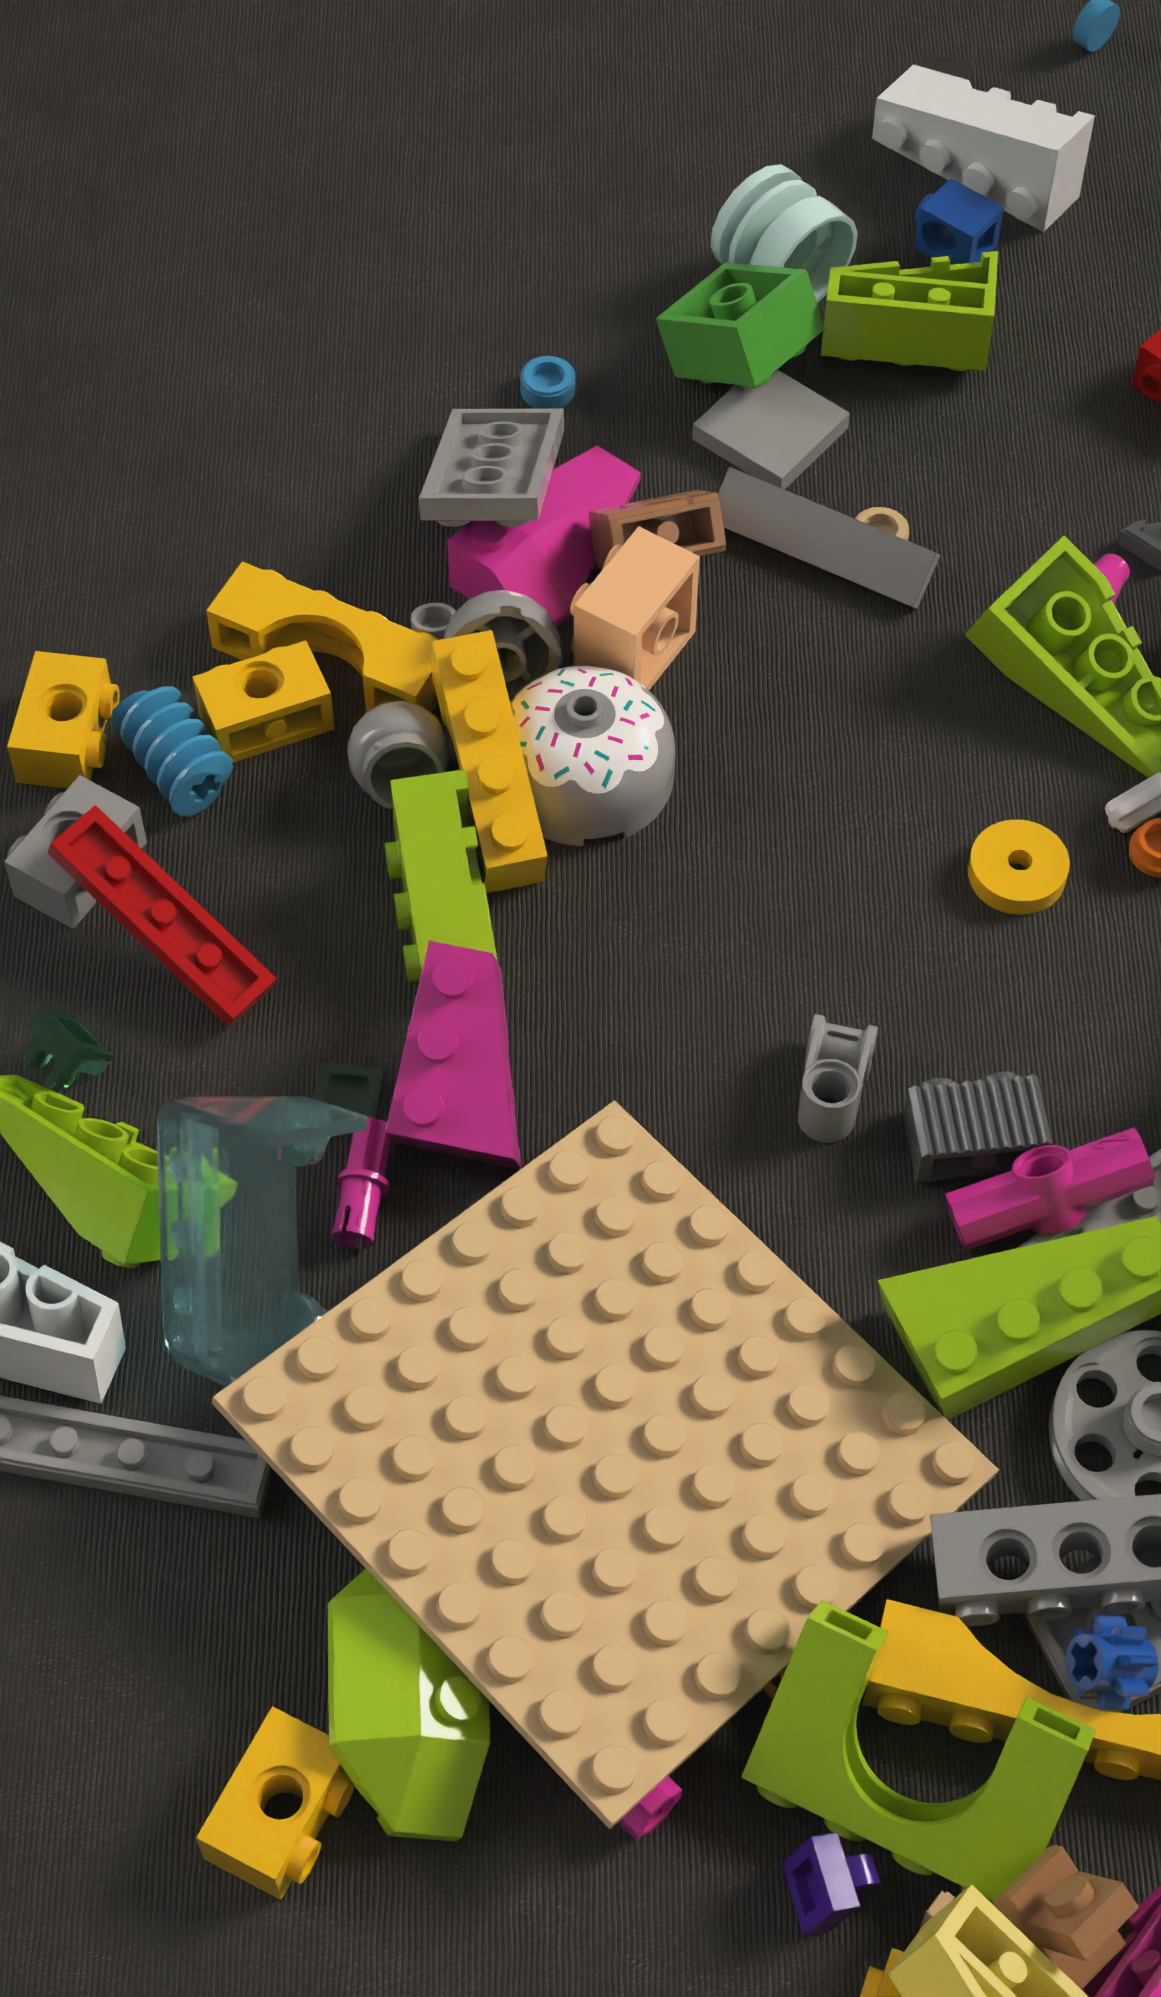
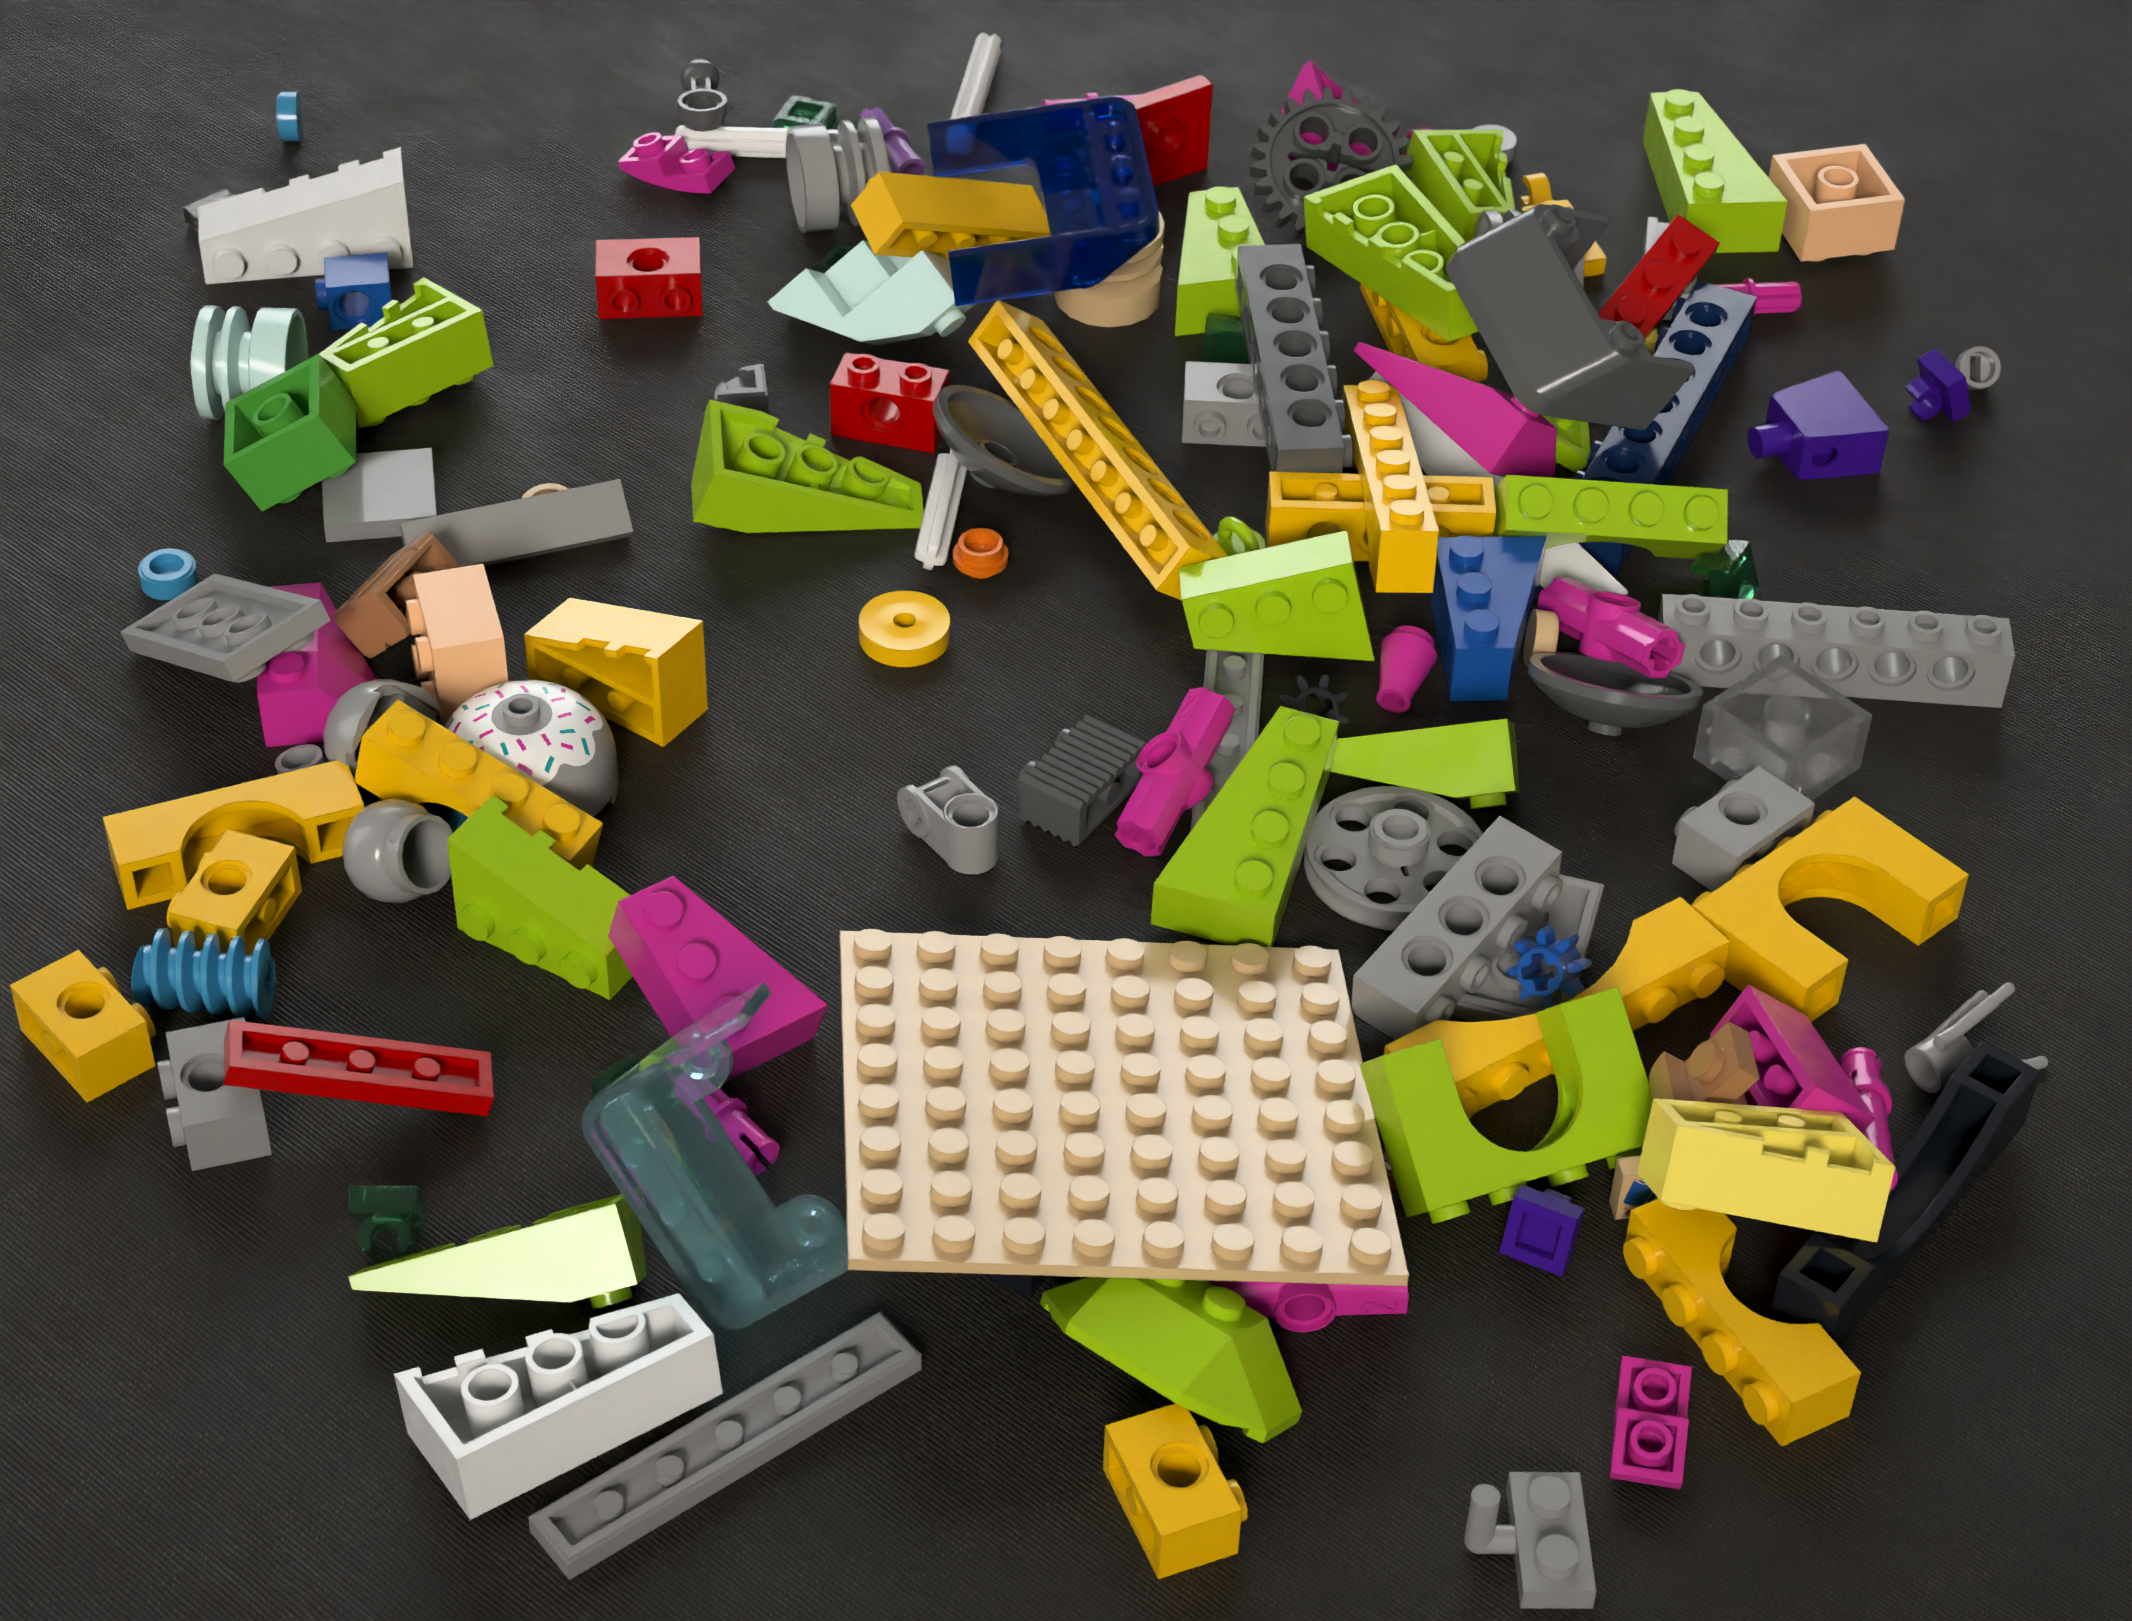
camera: 50 degrees left, 15 degrees down
(746, 726) = (627, 662): none -> yellow wedge

